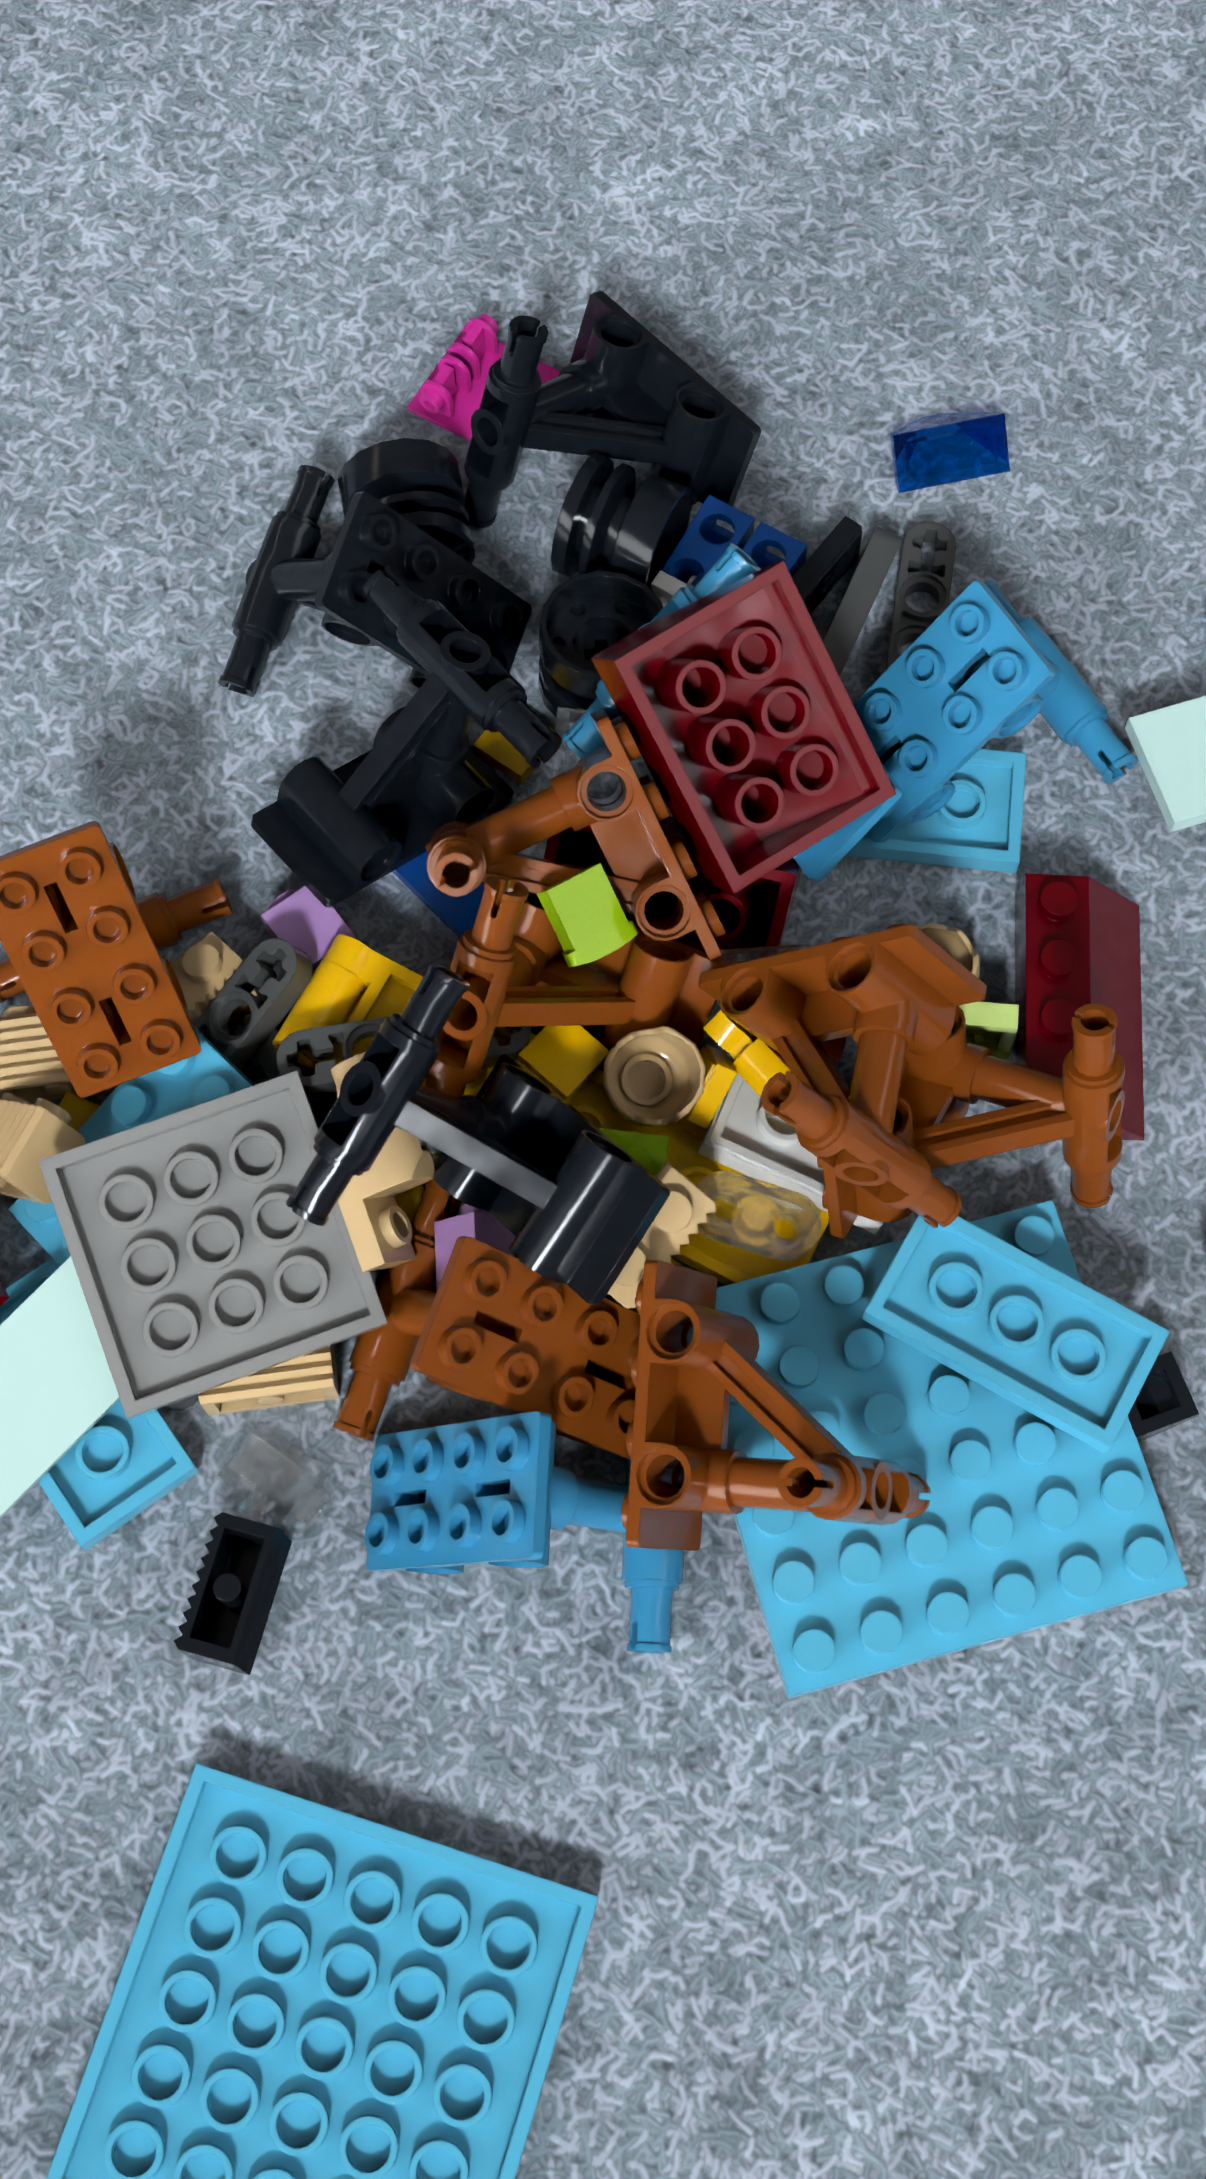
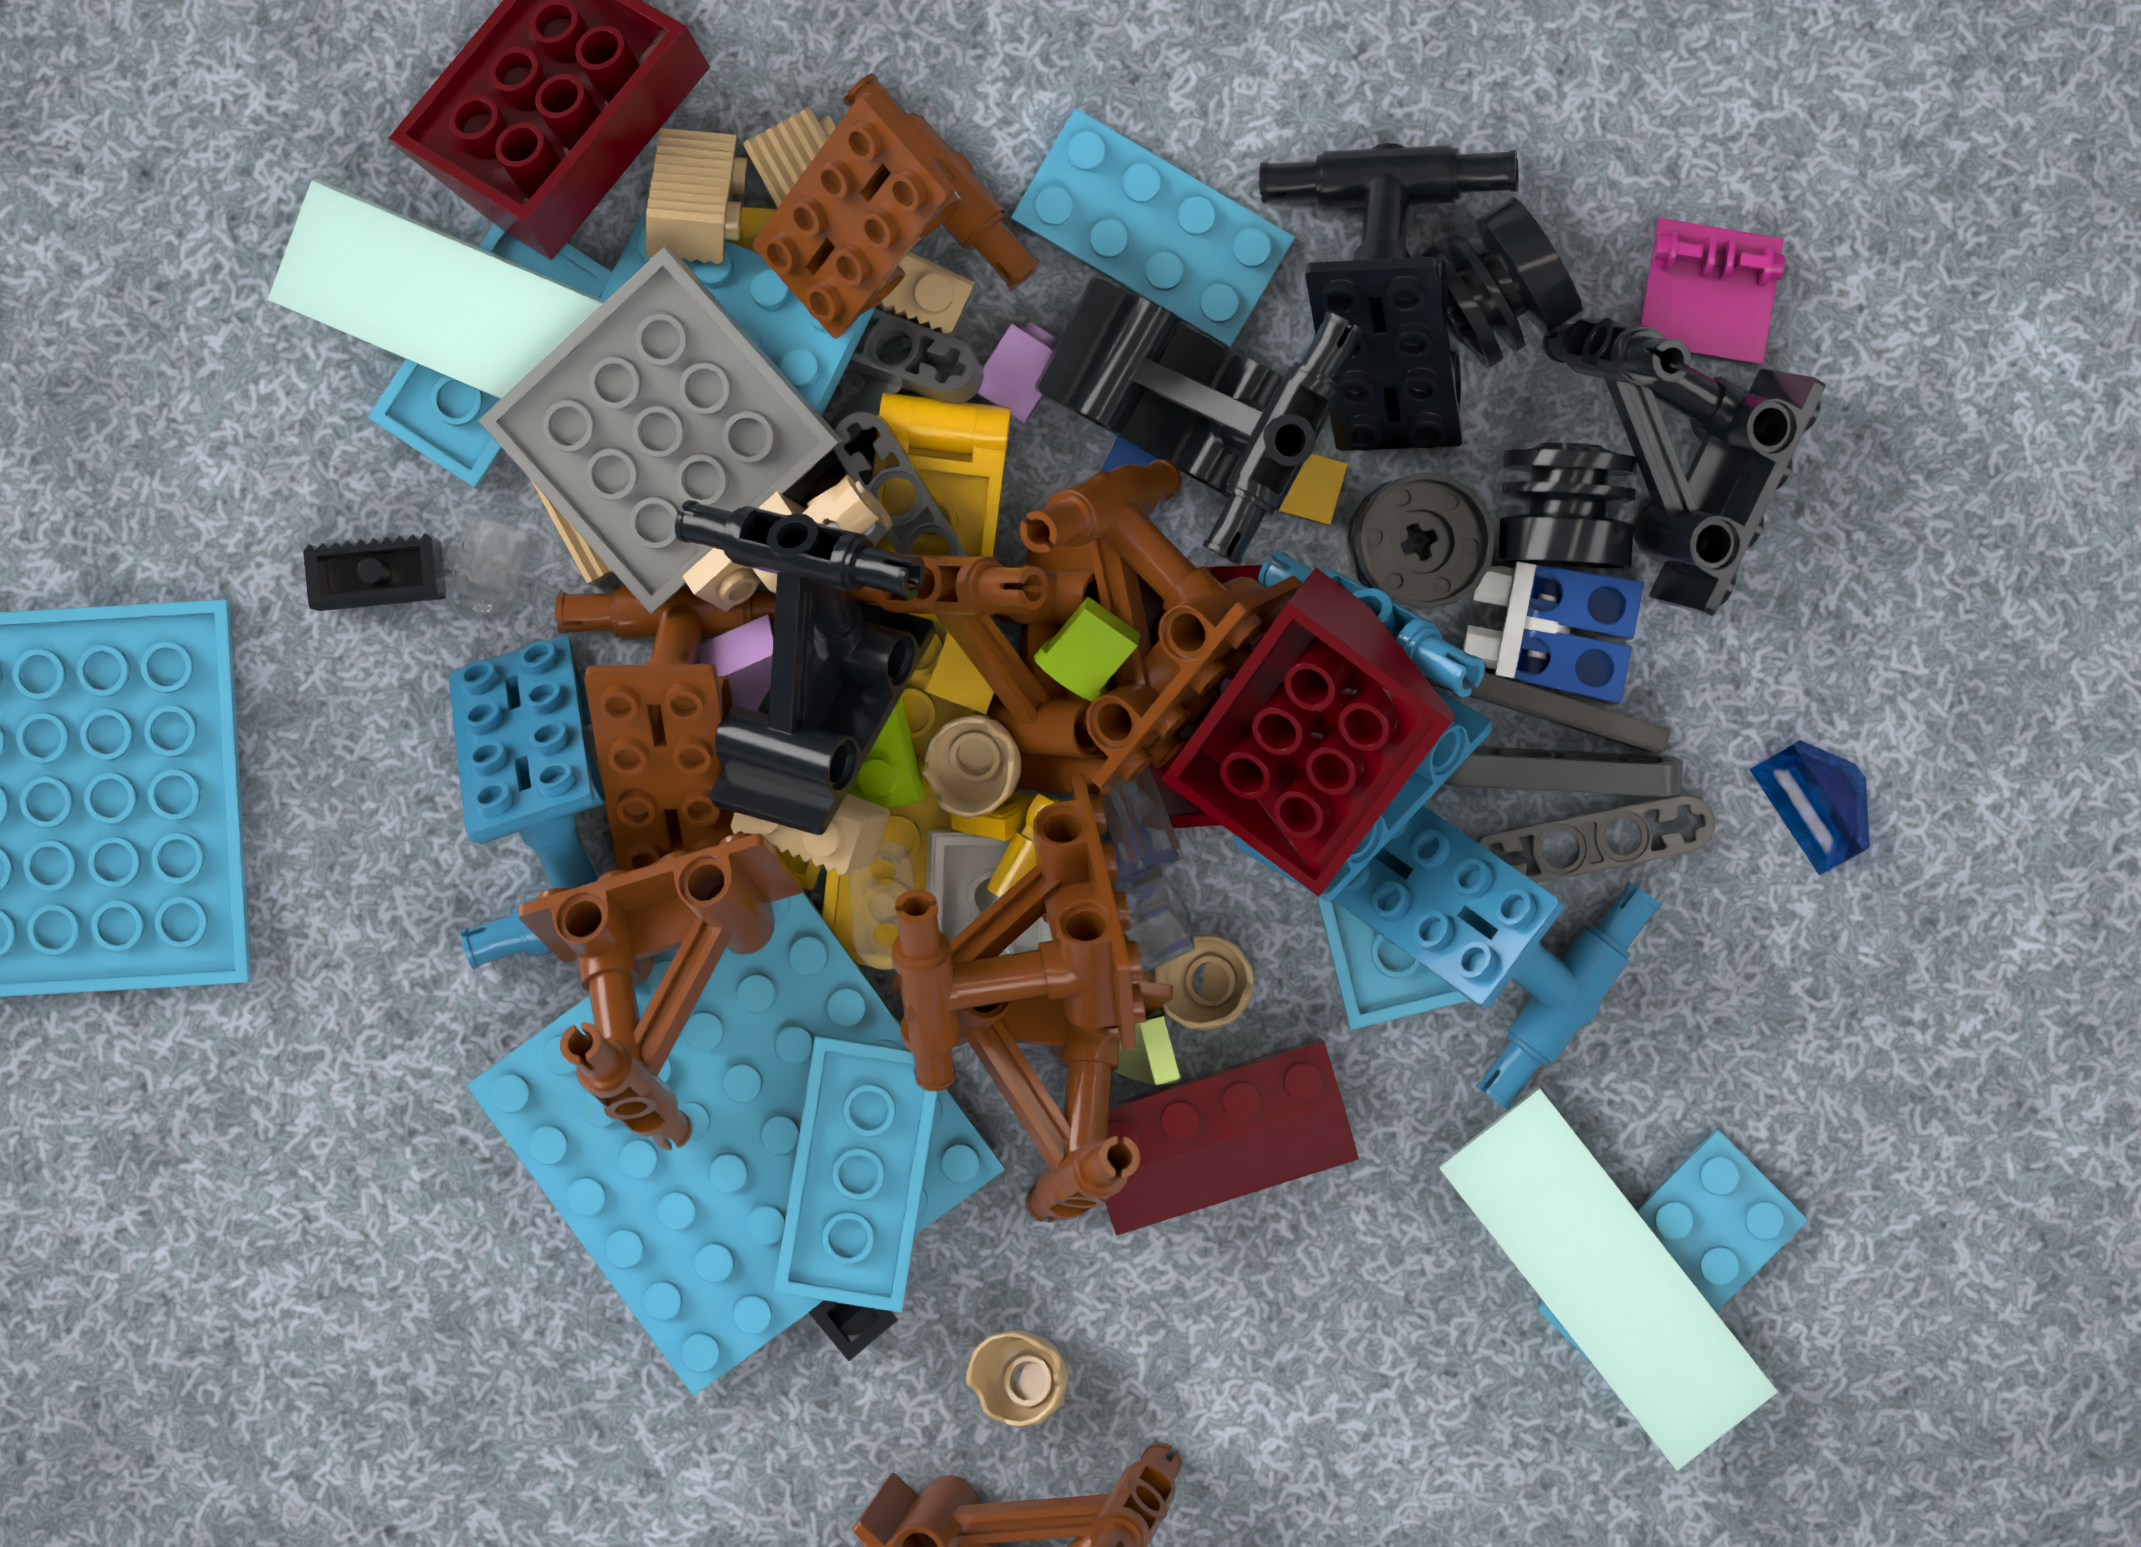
camera: 70 degrees right, 20 degrees up
(200, 806) = (1152, 228): none -> medium azure plate

